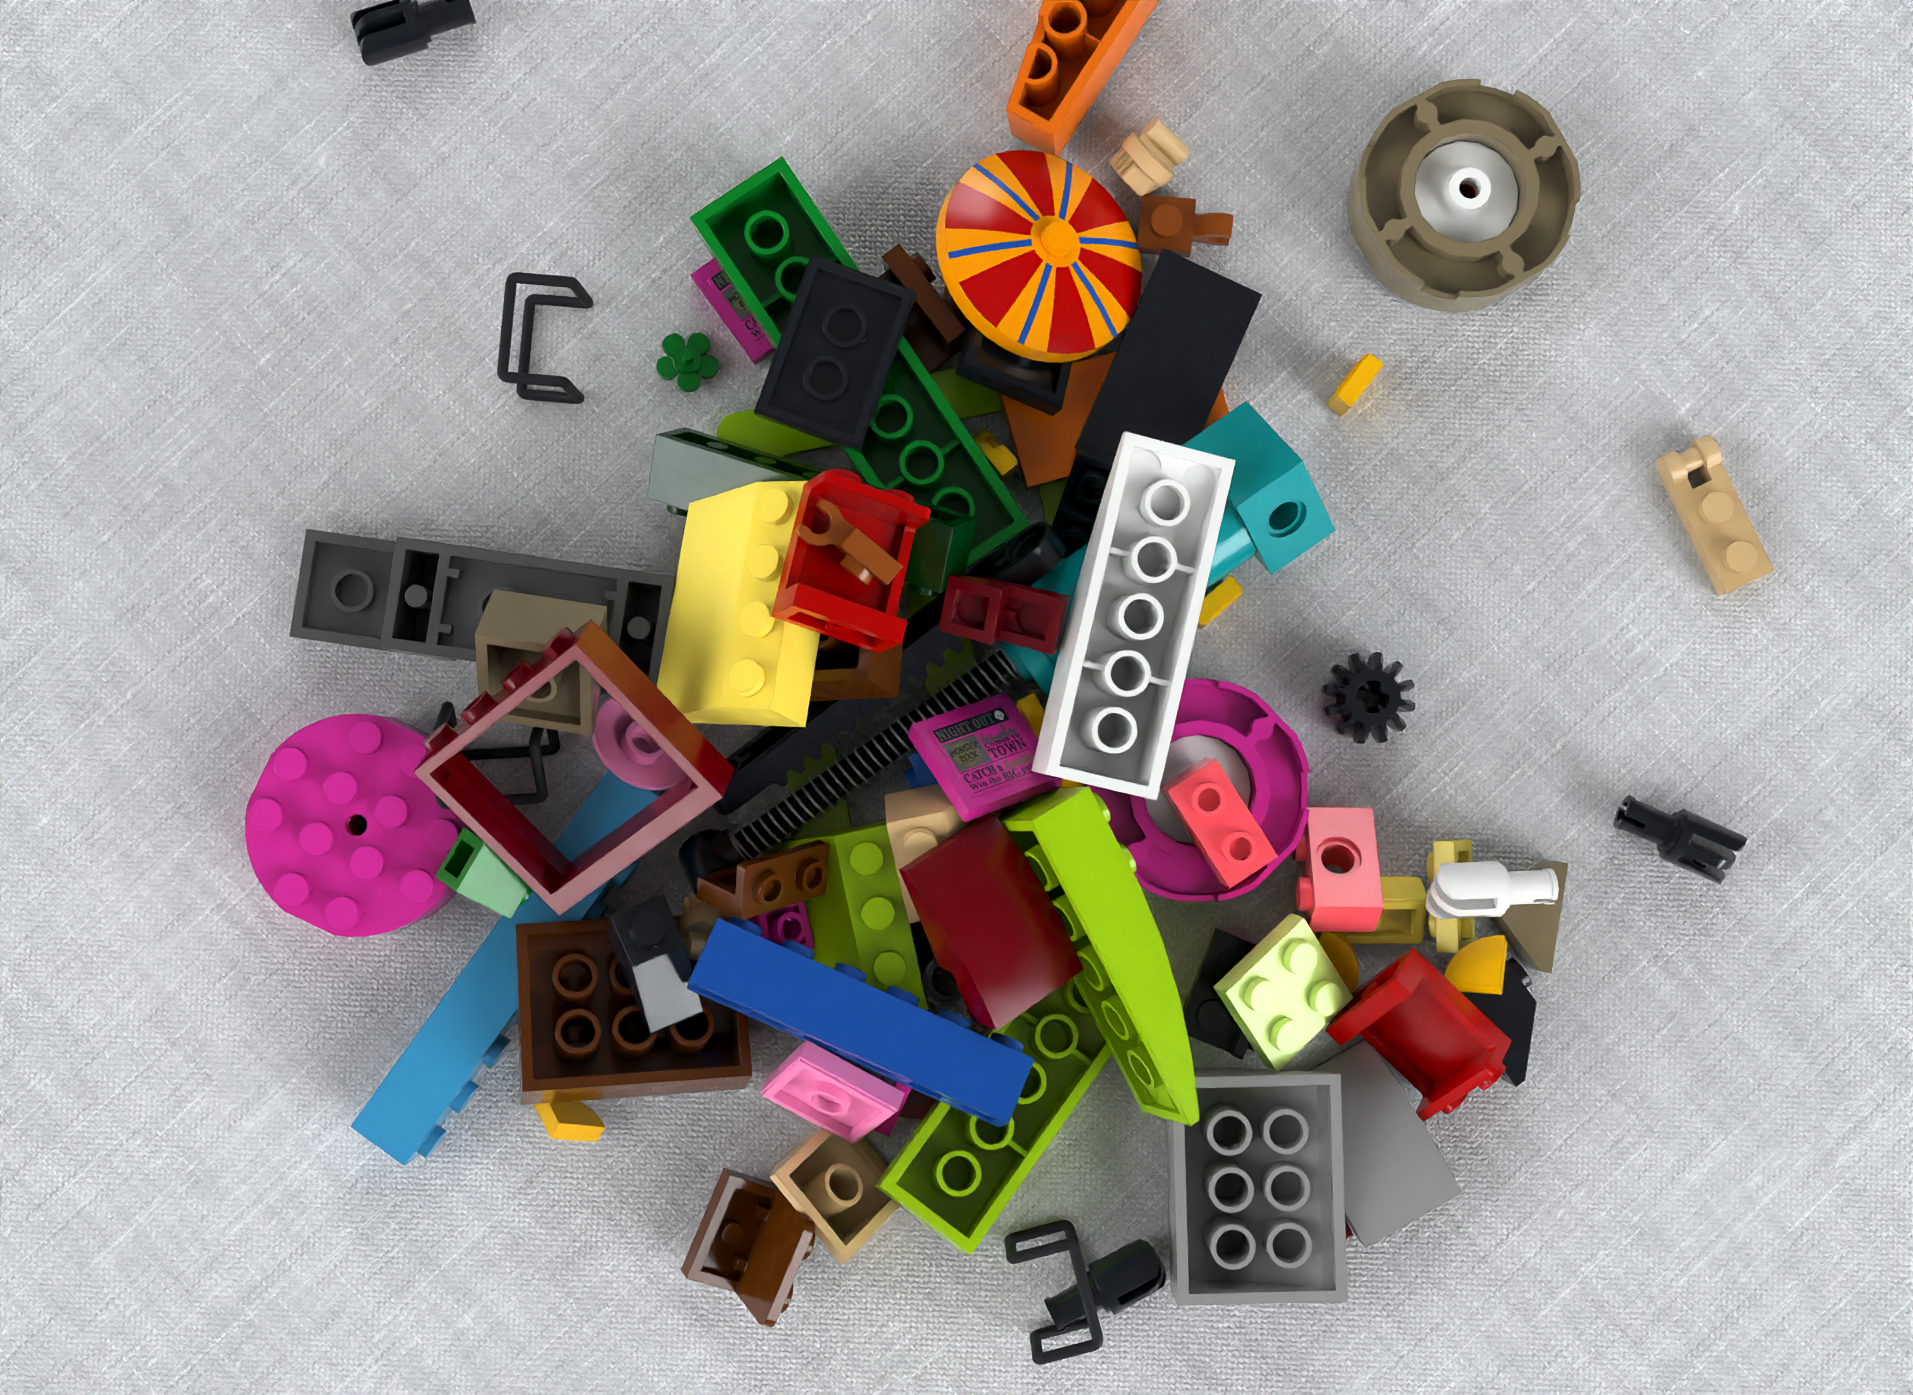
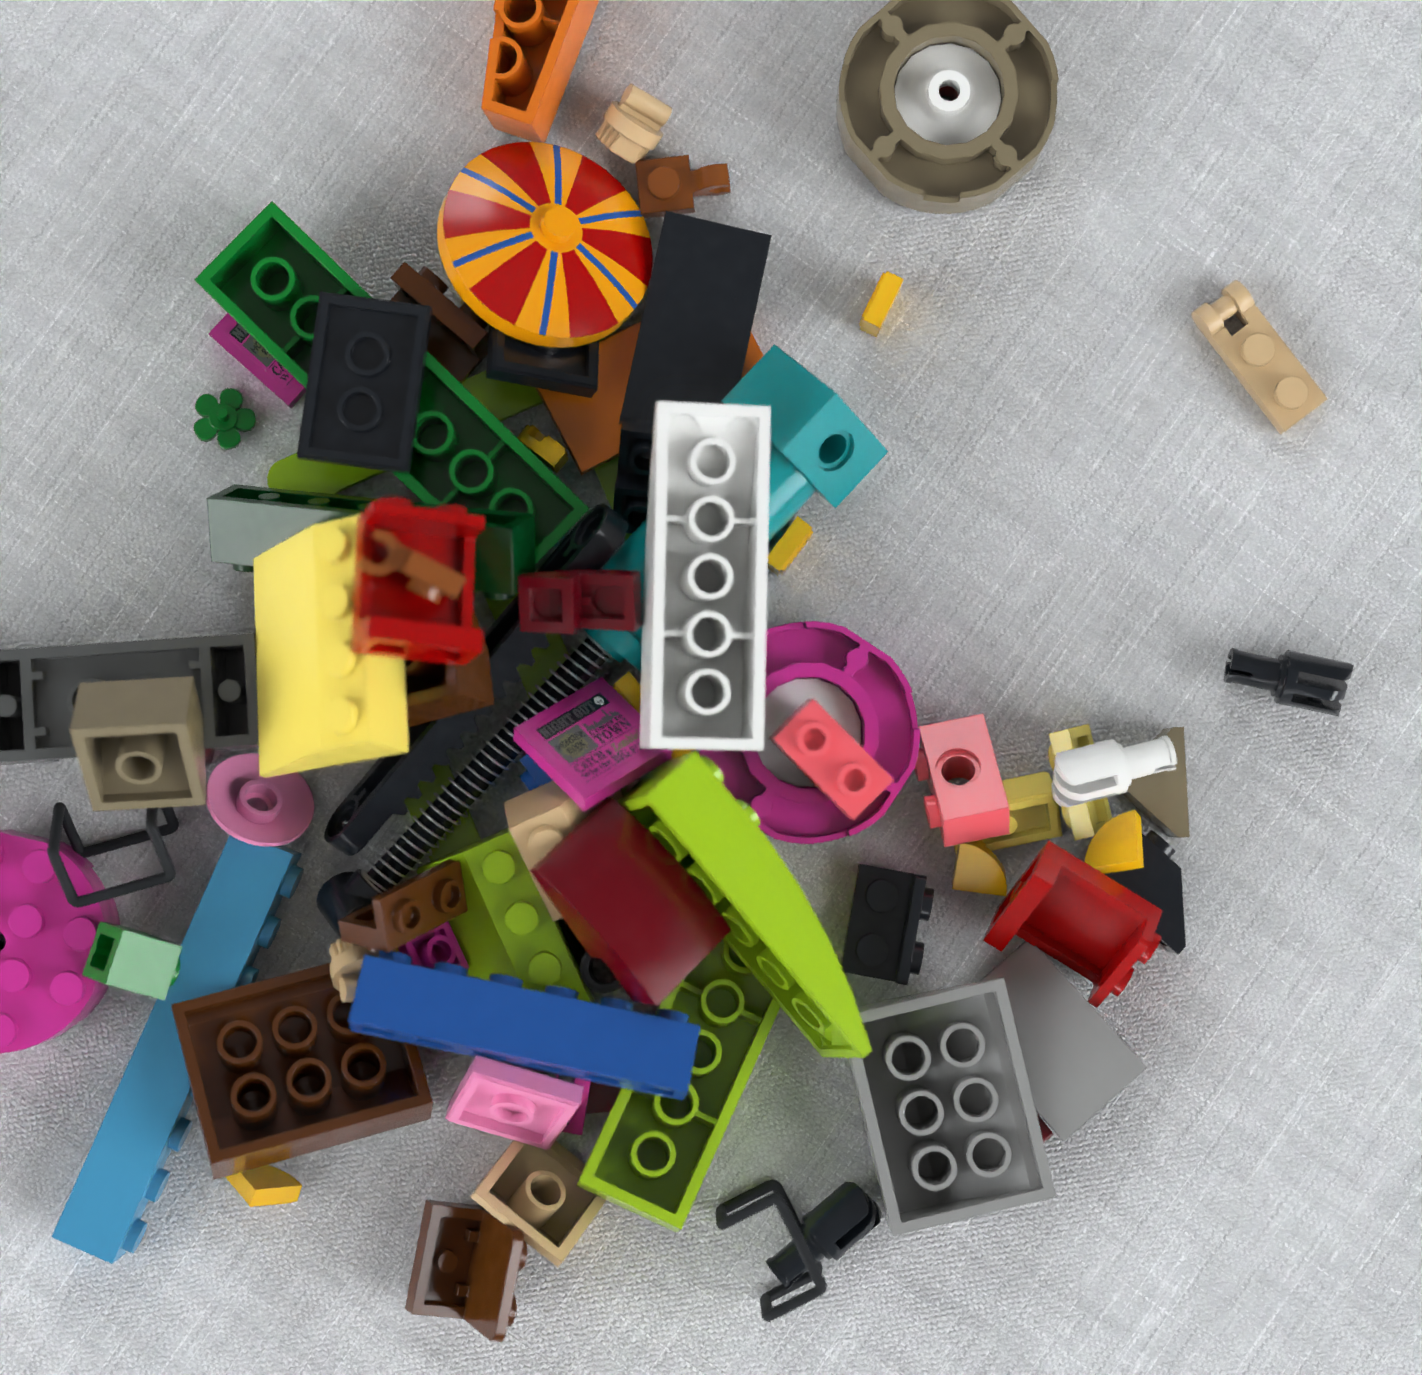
camera: 15 degrees left, 0 degrees up
(511, 833) = (146, 916): dark red window -> none
(523, 377) = (65, 470): black piece -> none
(654, 963) = (313, 1013): black slope -> none
(1283, 992) = (933, 911): yellowish green plate -> none
(1382, 686) = (971, 594): black gear -> none

